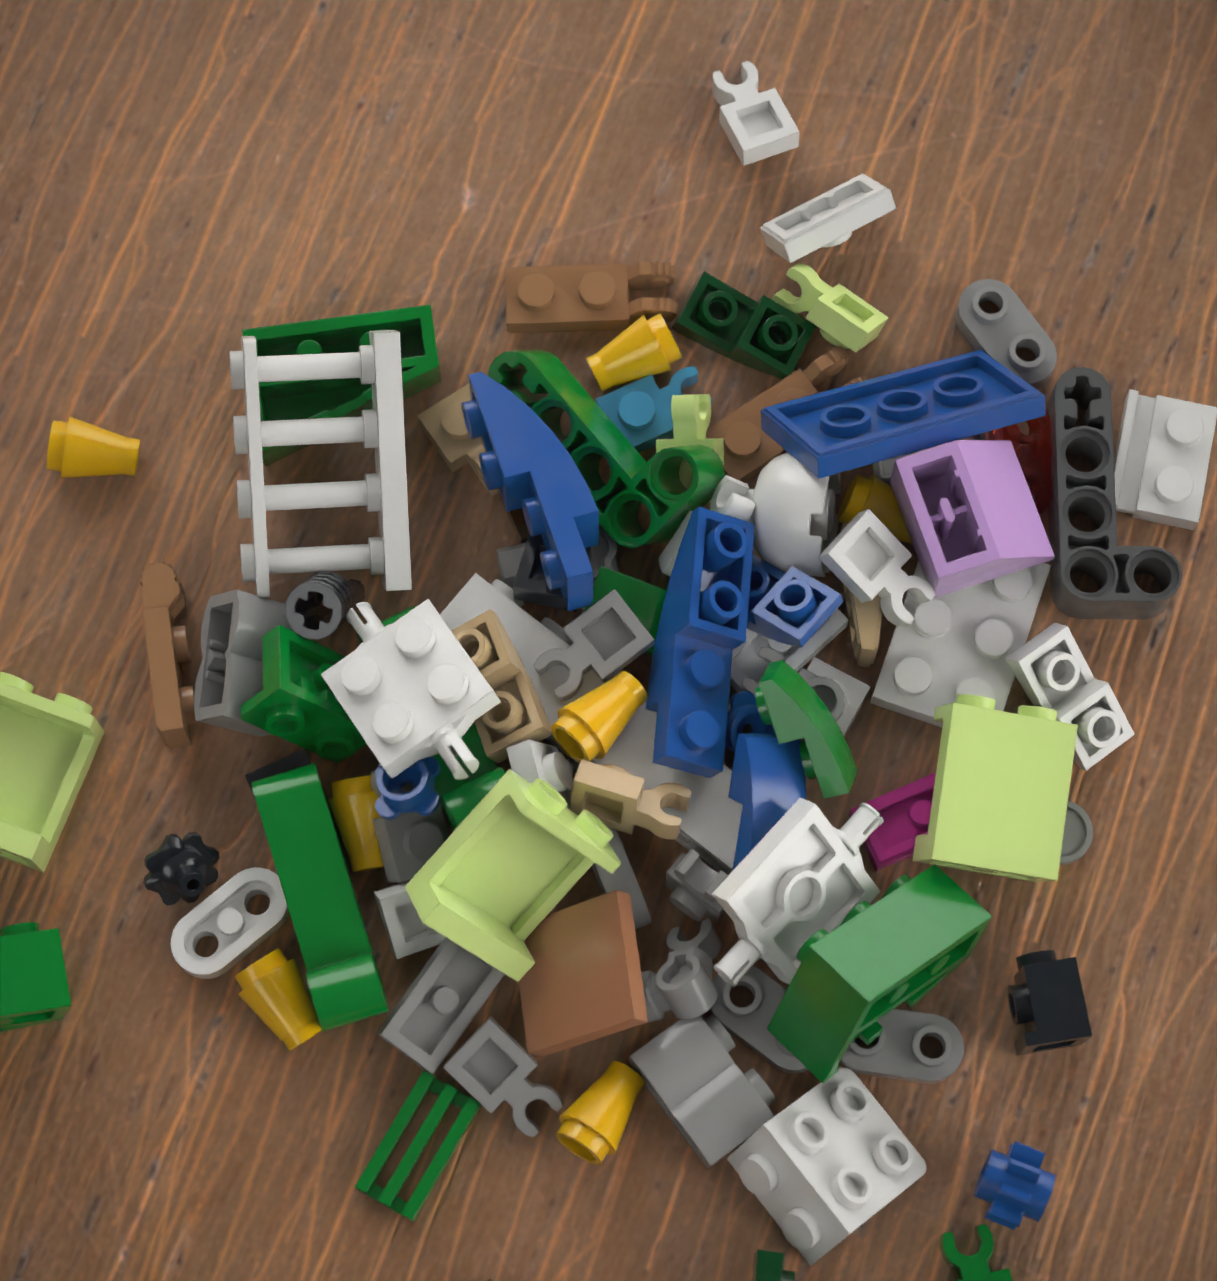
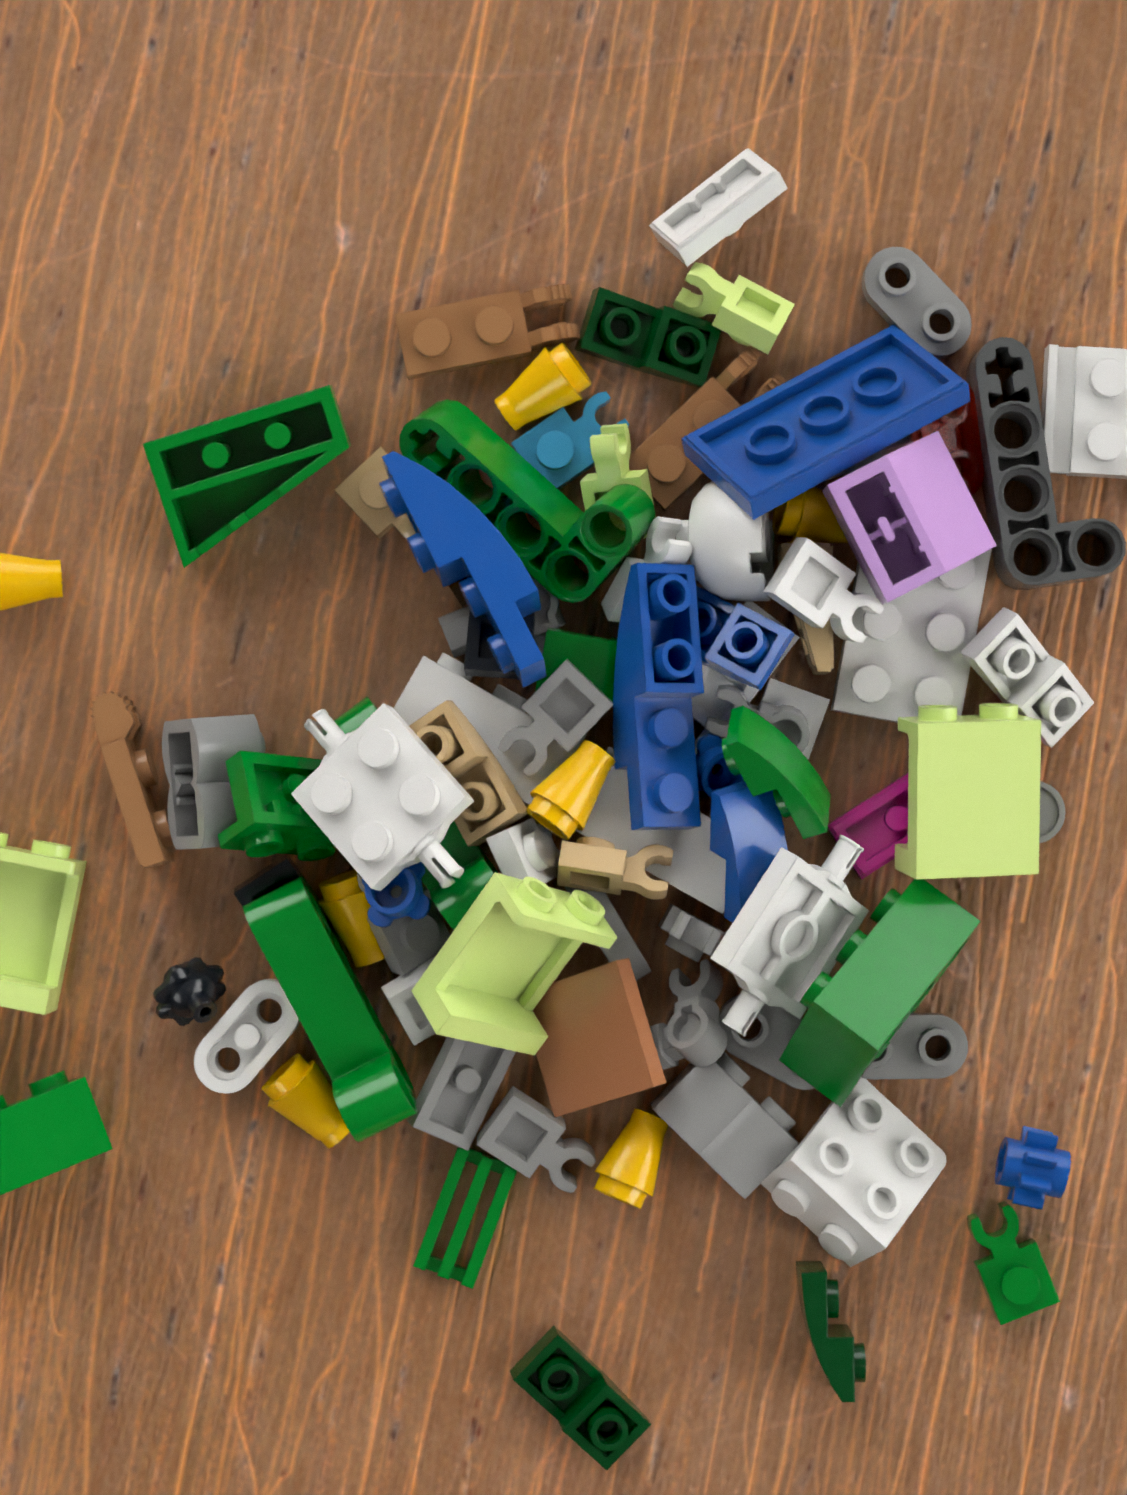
camera: 10 degrees left, 15 degrees up
(336, 594) = (281, 697): black hinge -> none
(376, 428) = (299, 528): white fence -> none
(752, 120) = (625, 108): white plate -> none
(1048, 1003) = (1042, 988): black brick -> none

